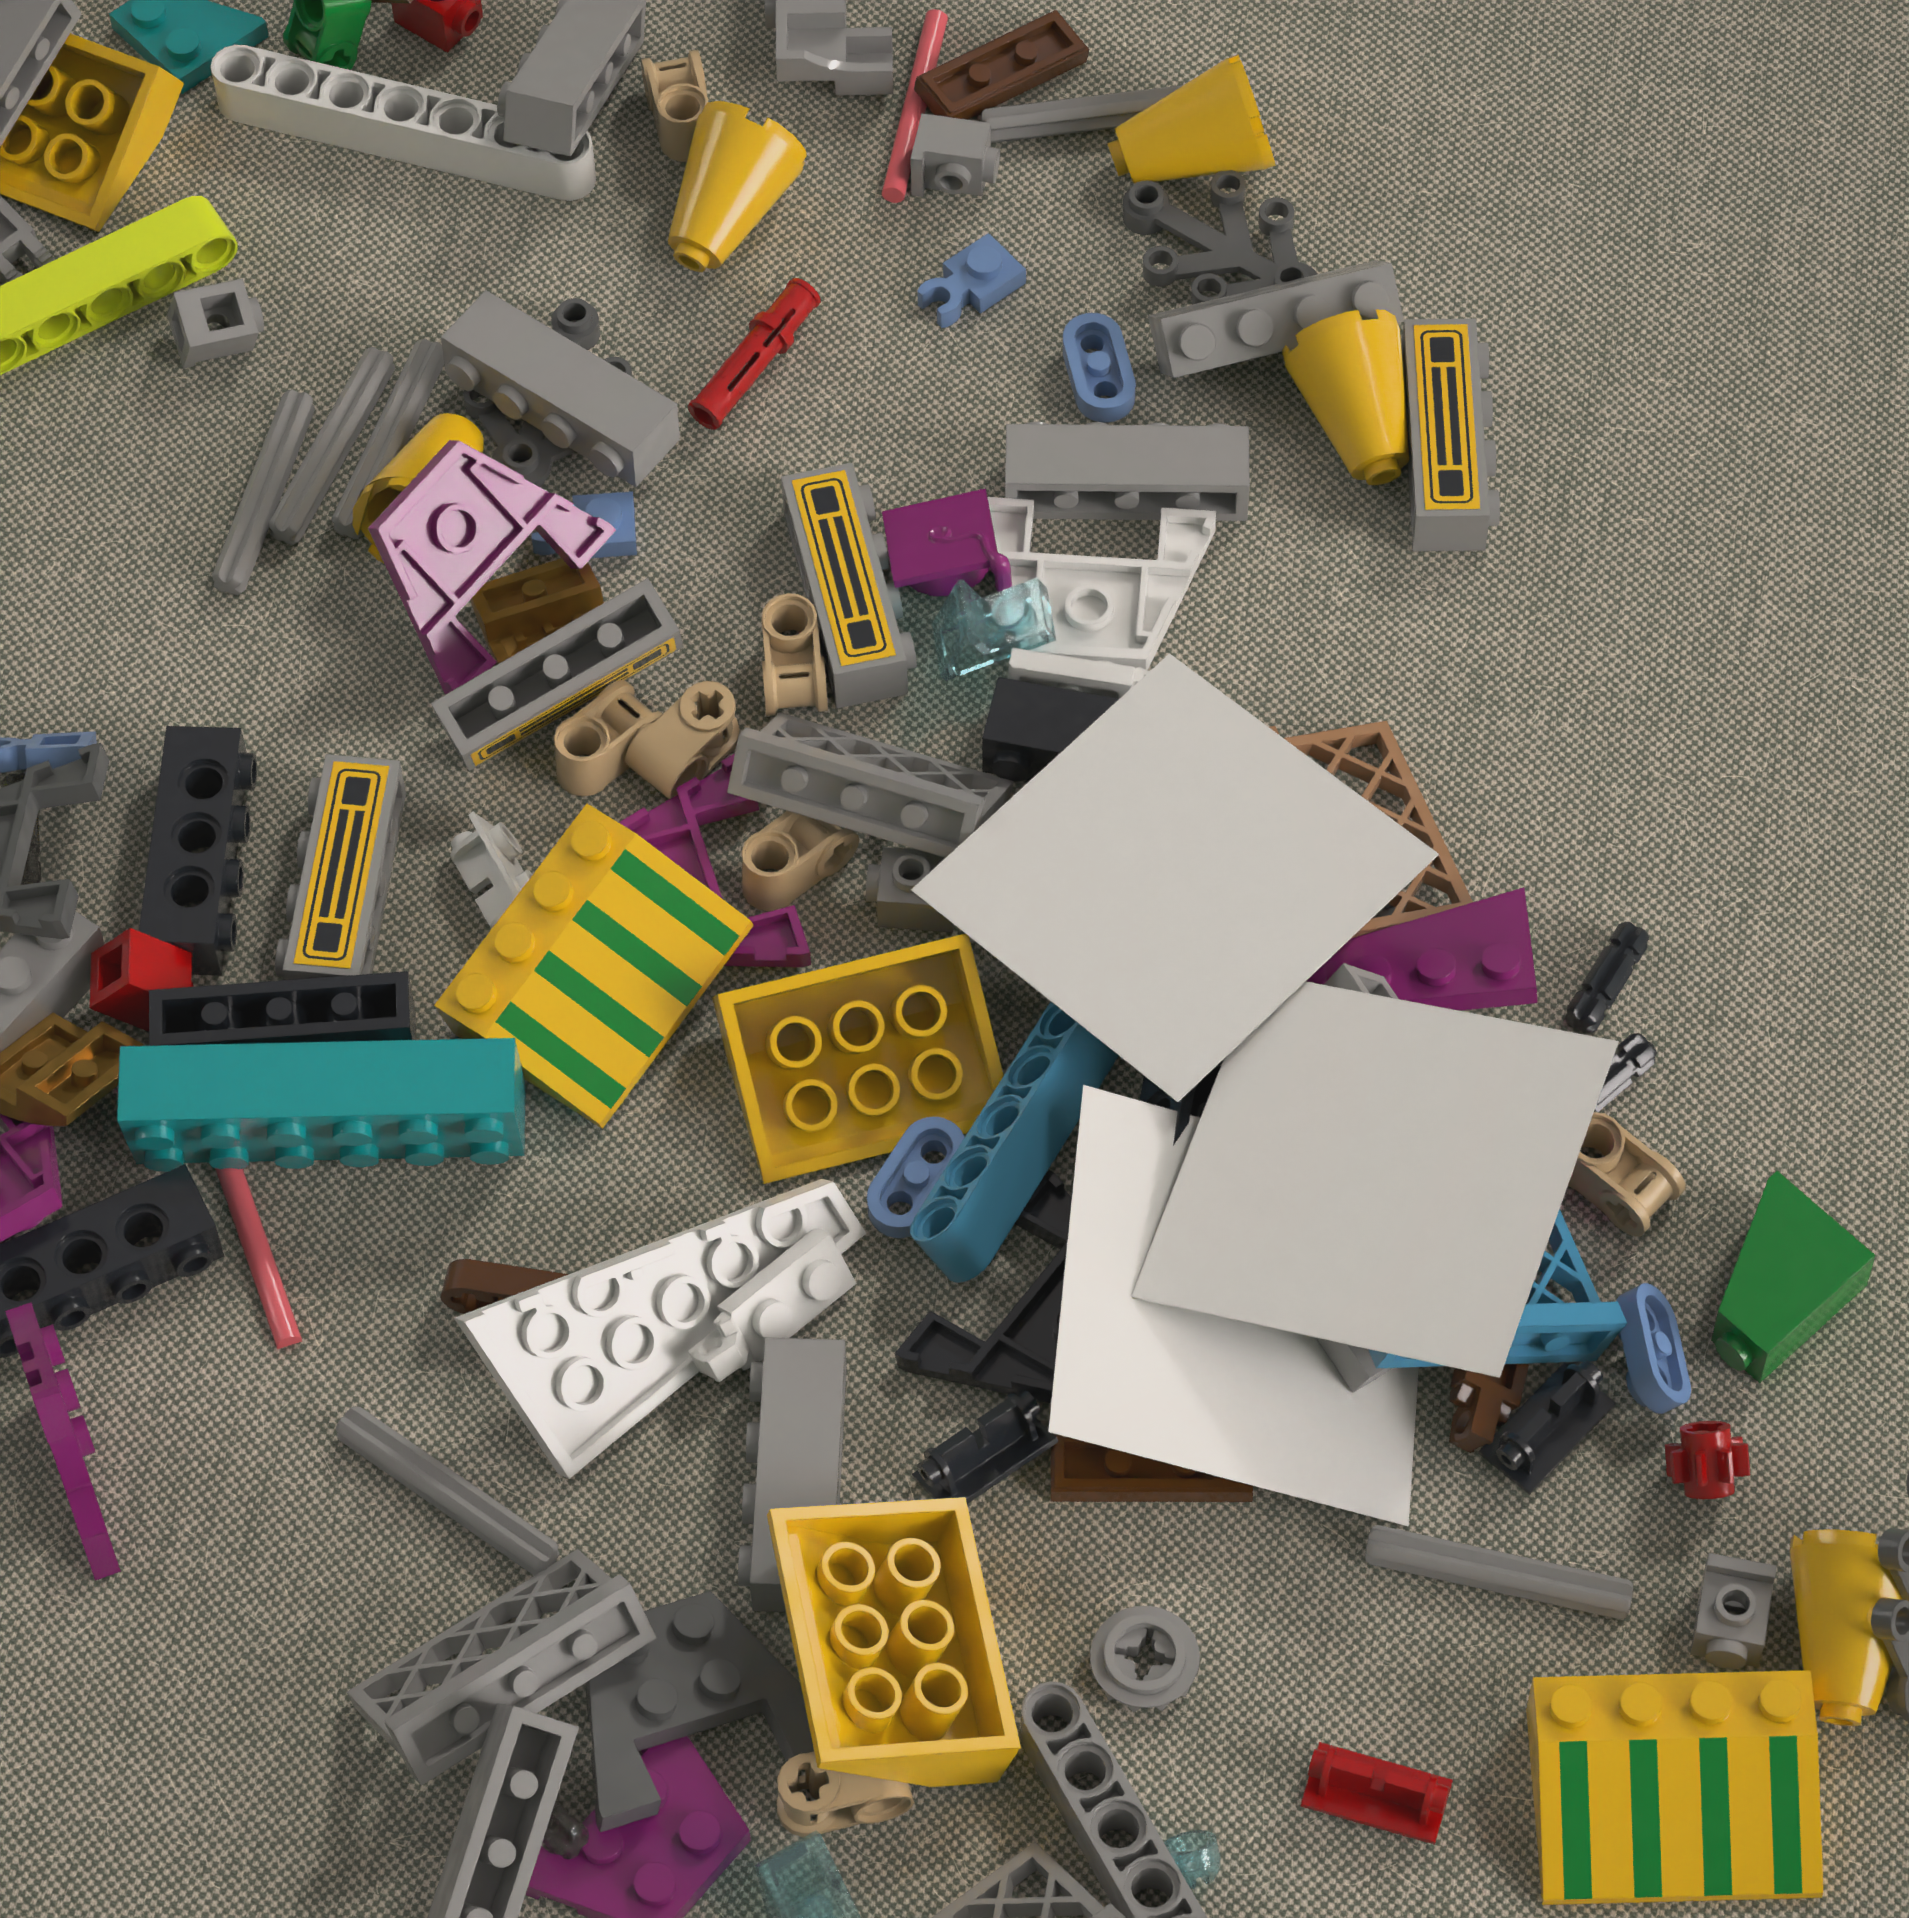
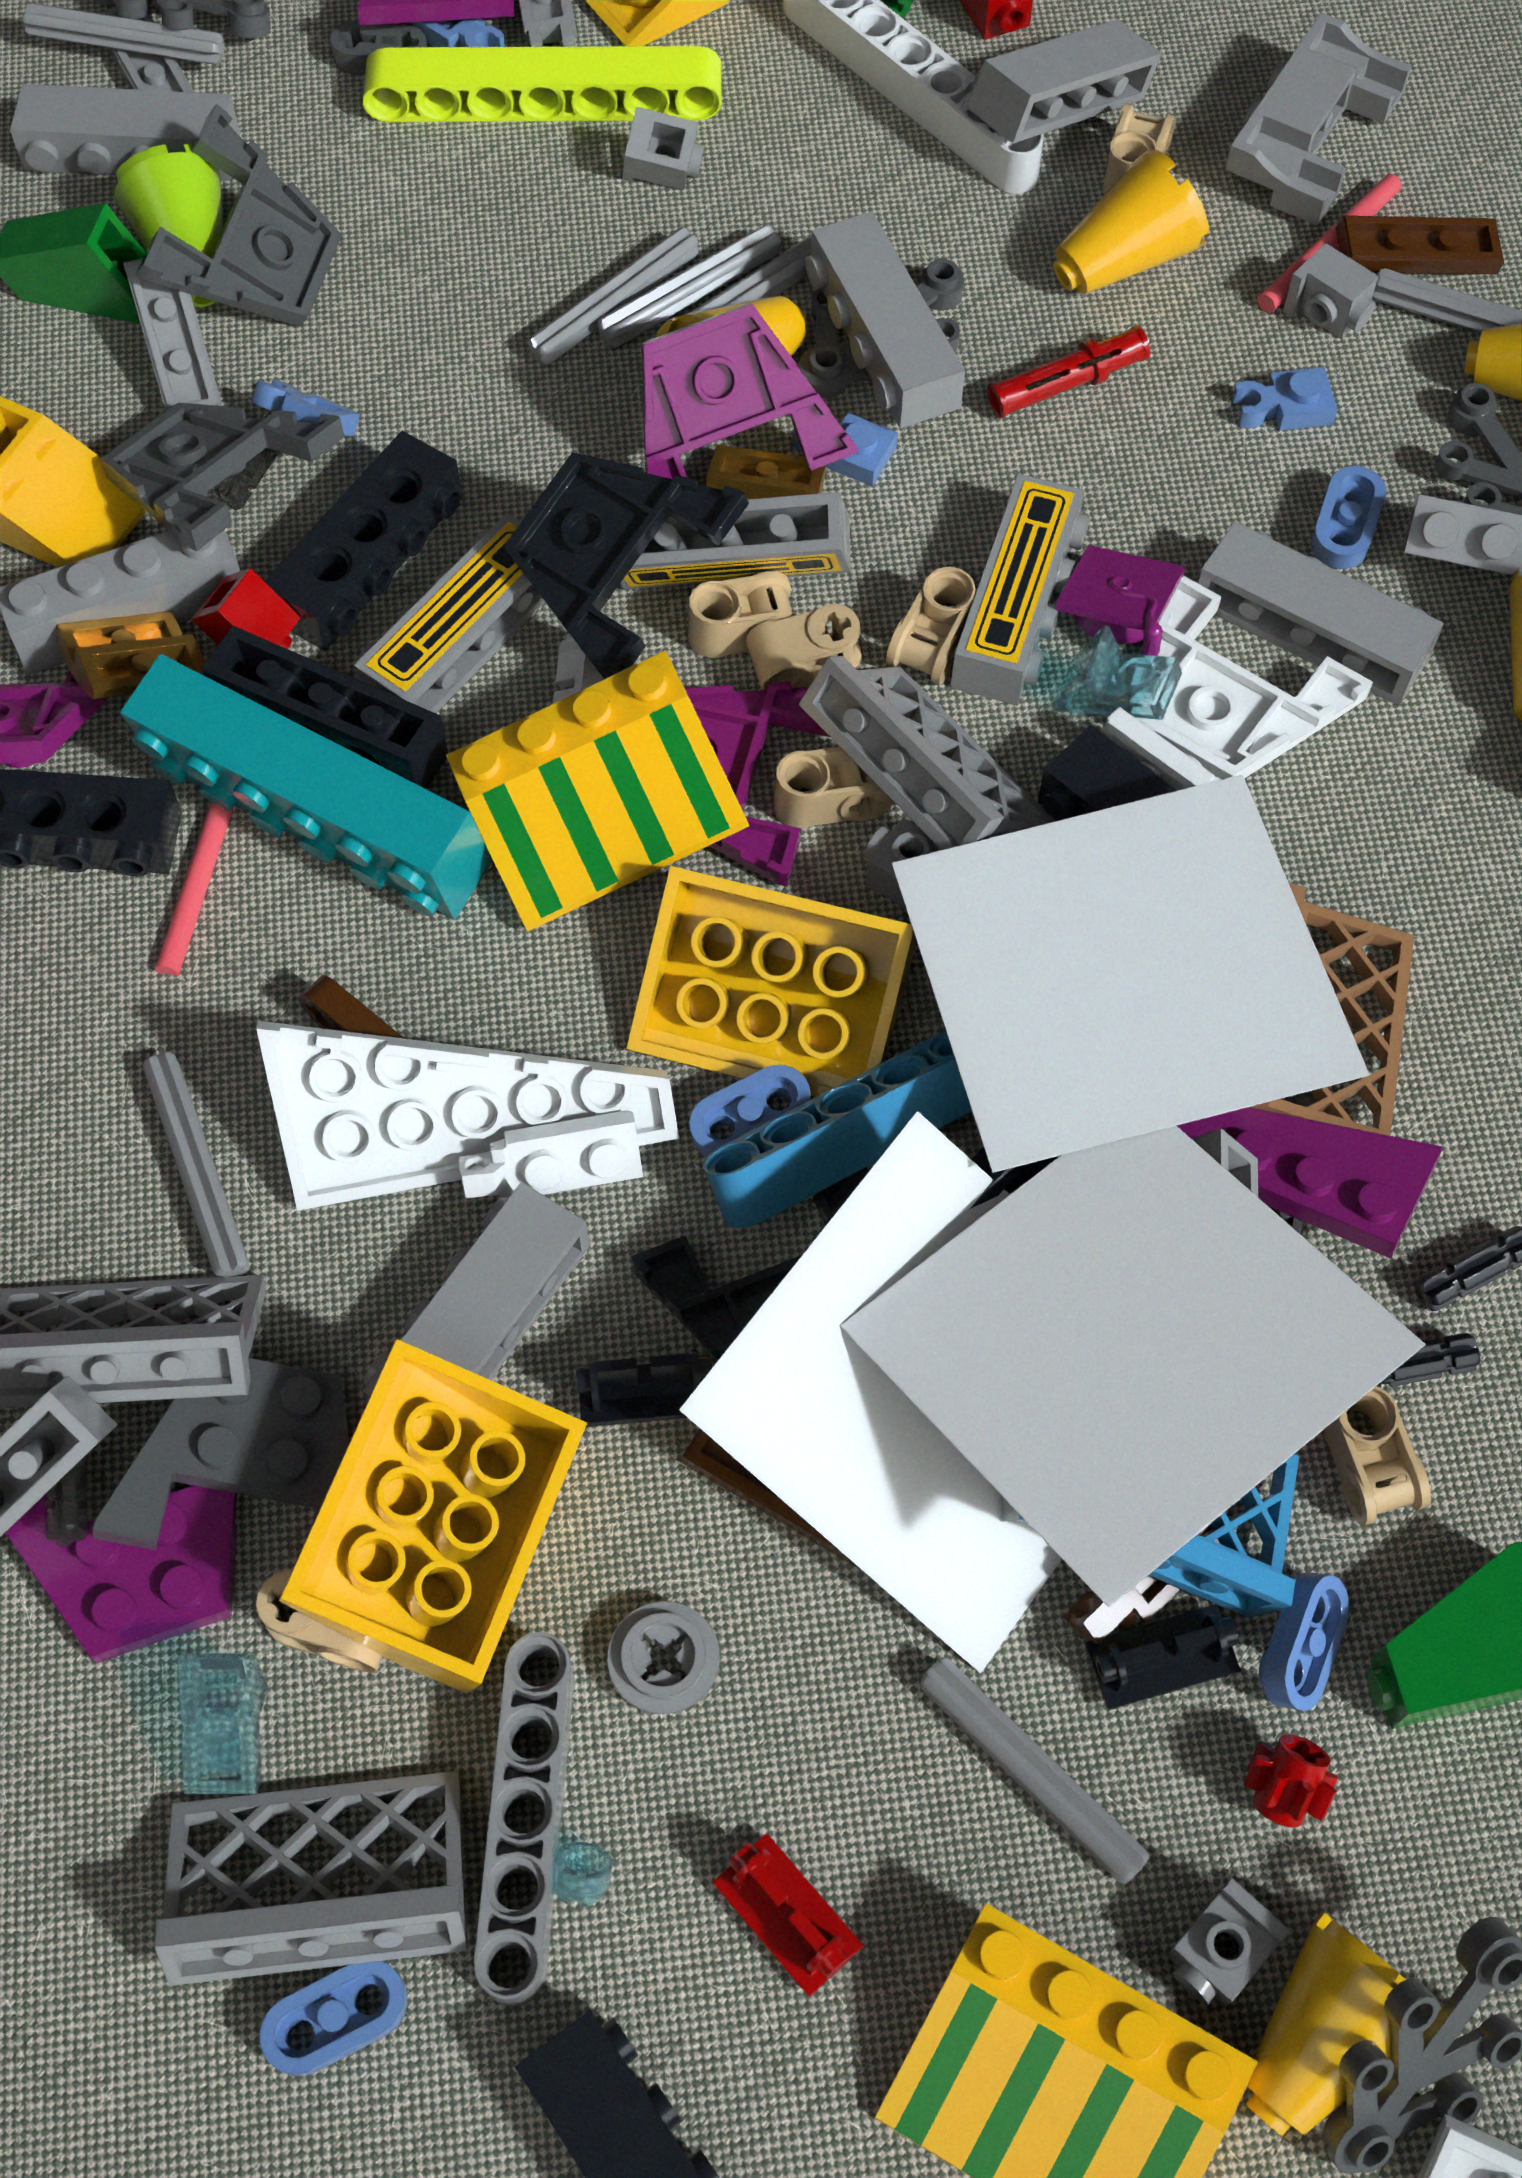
camera: 30 degrees right, 5 degrees up
(434, 732) = (592, 532): none -> black wing

